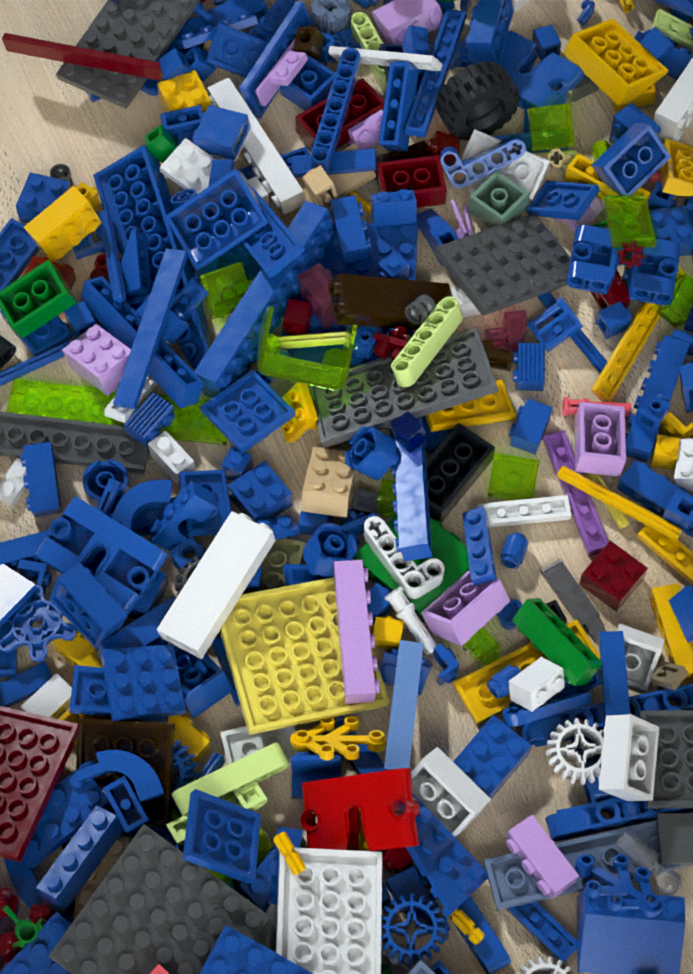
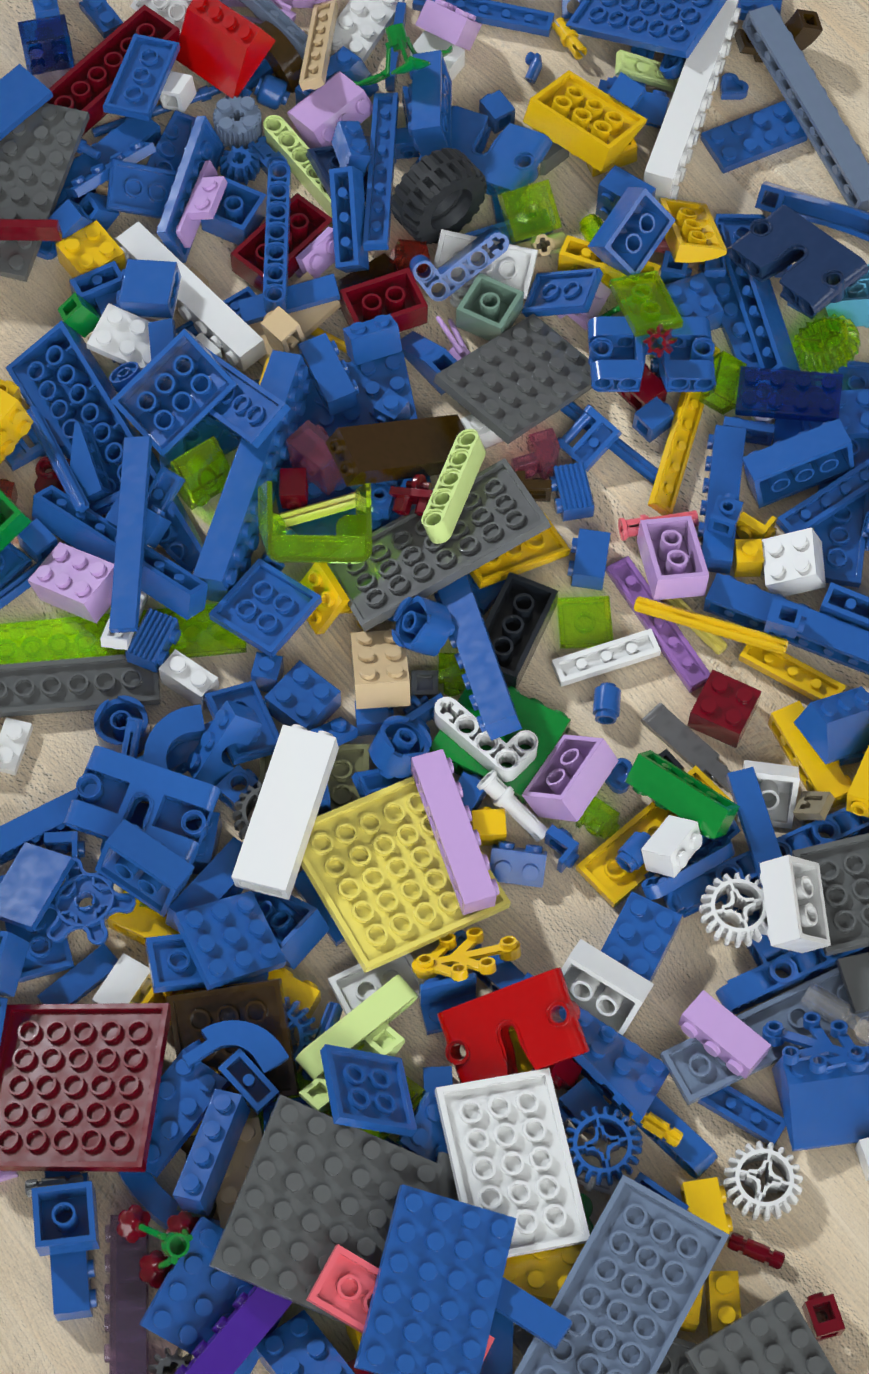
camera: 15 degrees left, 0 degrees up
(41, 479) = (43, 736): blue brick -> none
(291, 857) = (454, 1097): yellow piece -> none
(309, 41) = (229, 167): dark brown brick -> none
(383, 58) = (321, 165): white tile -> none
(403, 705) = (530, 901): medium blue tile -> none
(408, 432) = (460, 593): clear blue brick -> none
(420, 309) = (436, 450): dark grey wheel -> none
(479, 546) = (568, 706): blue plate -> none

